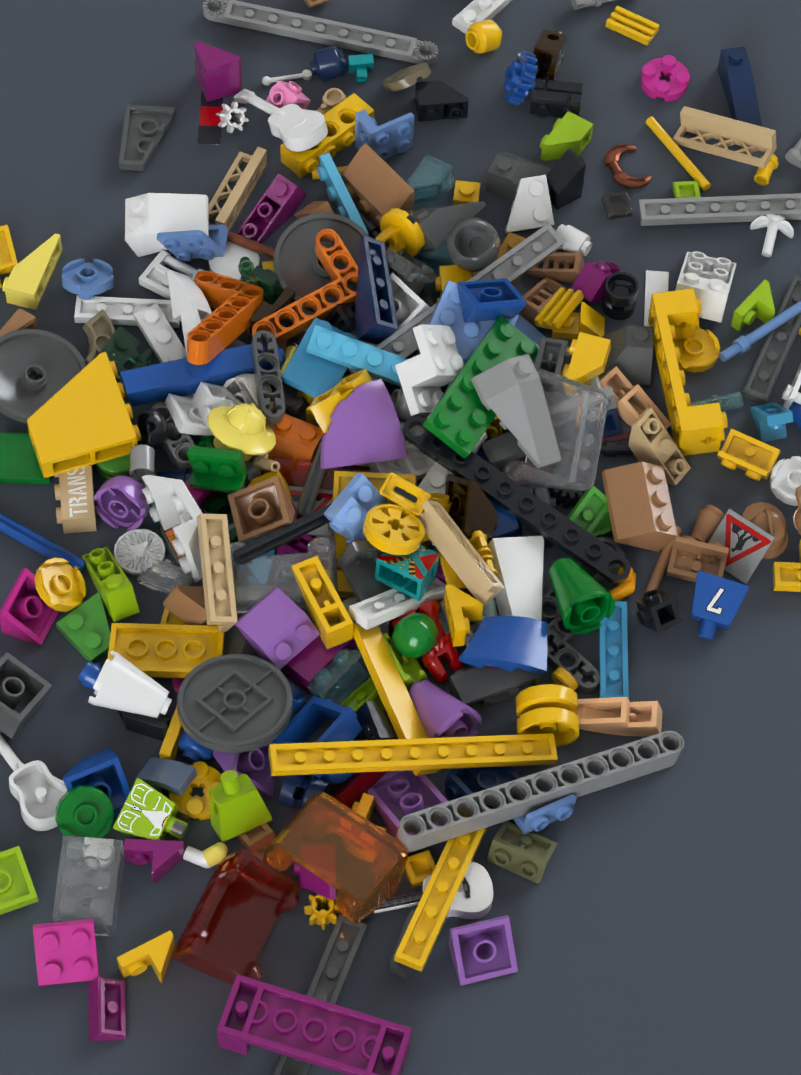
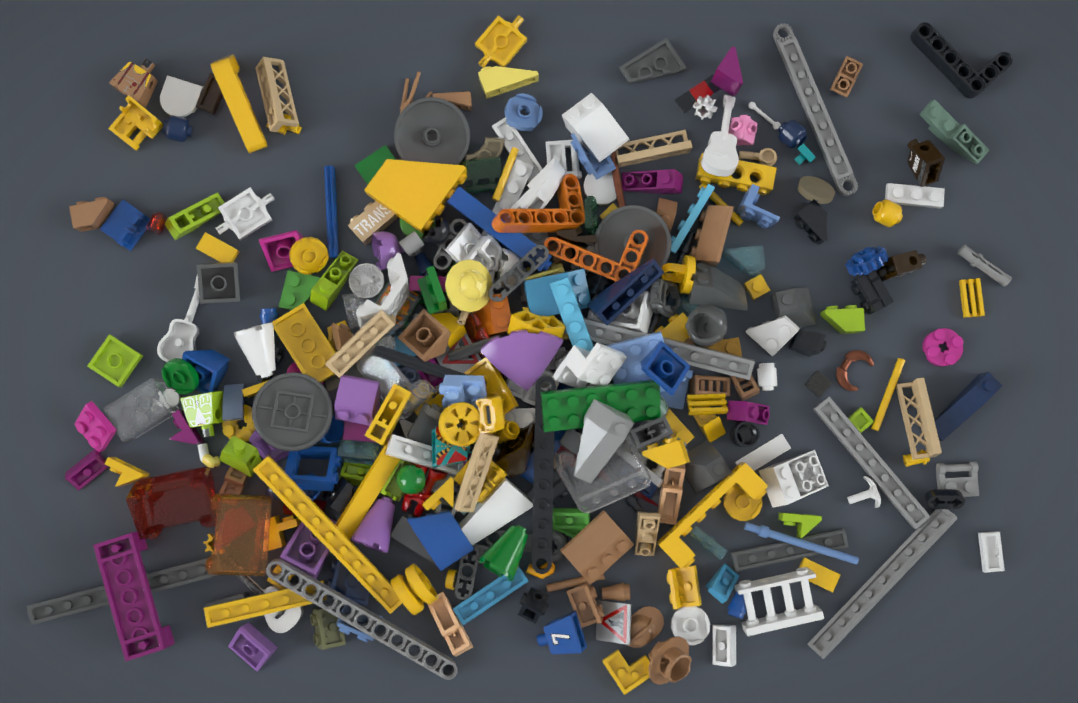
camera: 55 degrees right, 25 degrees up
(141, 334) = (505, 174): none -> yellow bar

